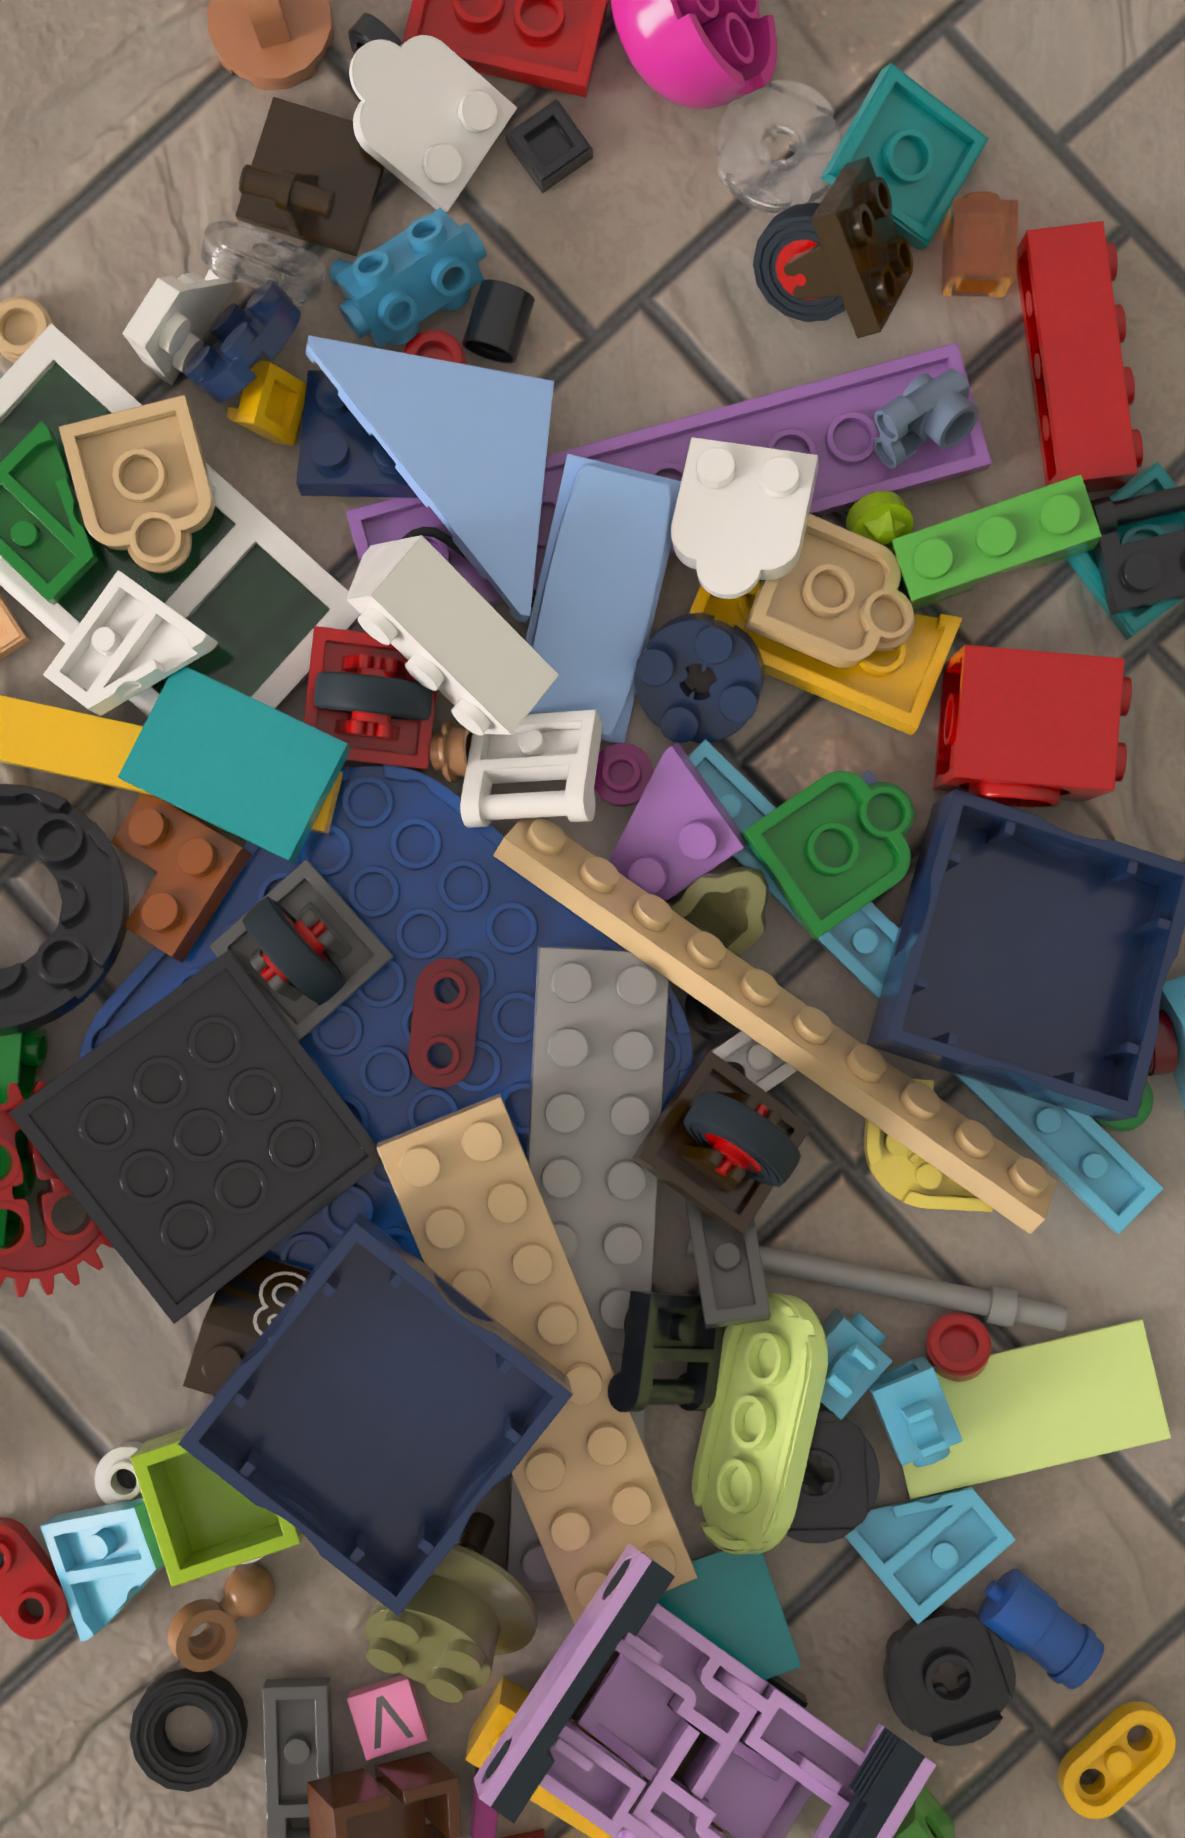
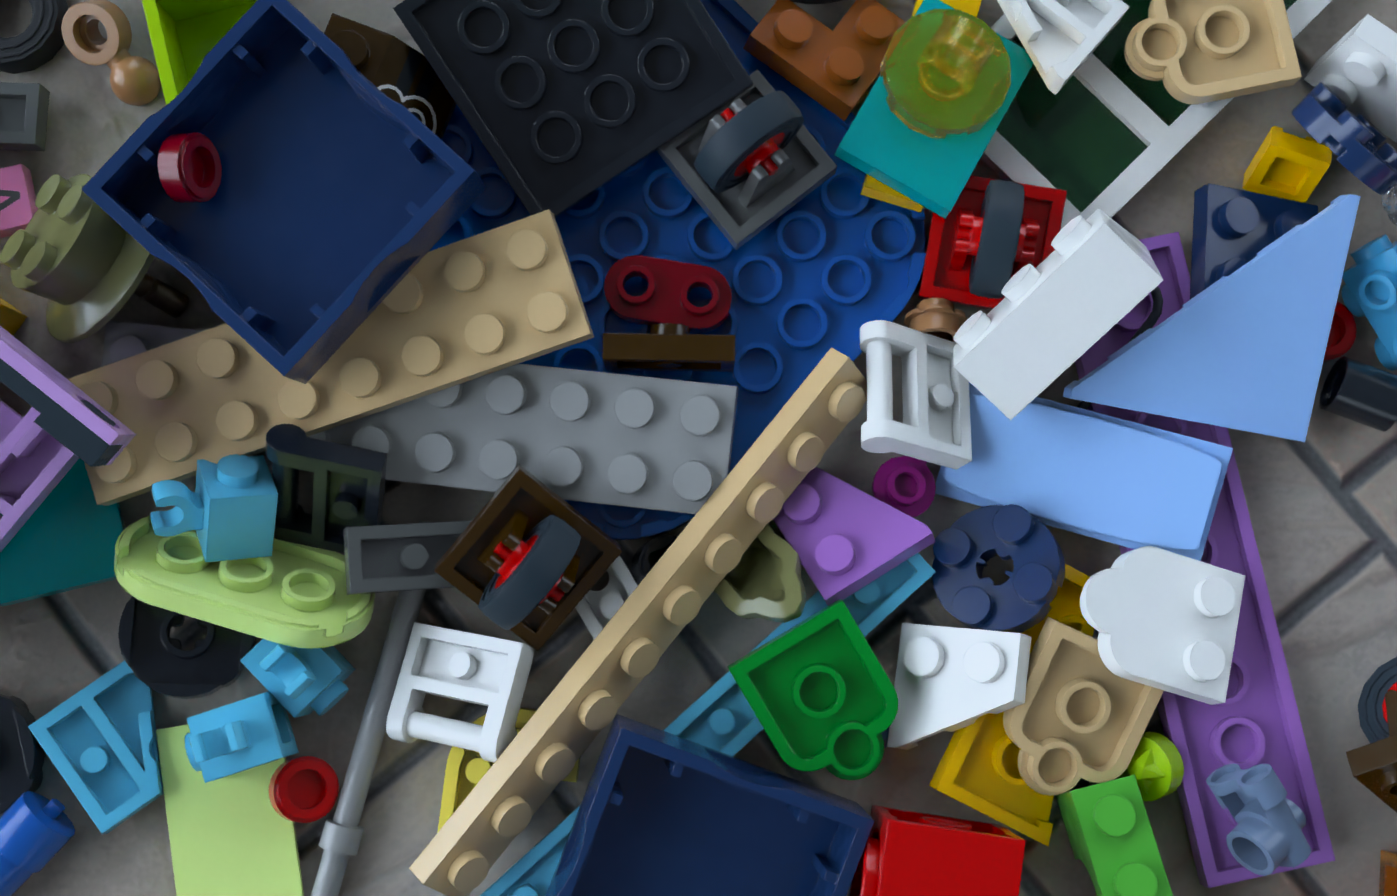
camera: 90 degrees right, 5 degrees down
(204, 755) = (945, 73): none -> clear yellow tile
(364, 1511) = (189, 167): none -> dark red tile
(502, 1017) = (669, 349): none -> dark brown plate
(693, 1445) = (229, 509): none -> medium azure brick
(809, 716) = (954, 678): none -> white wing
(833, 1196) = (463, 669): none -> white plate

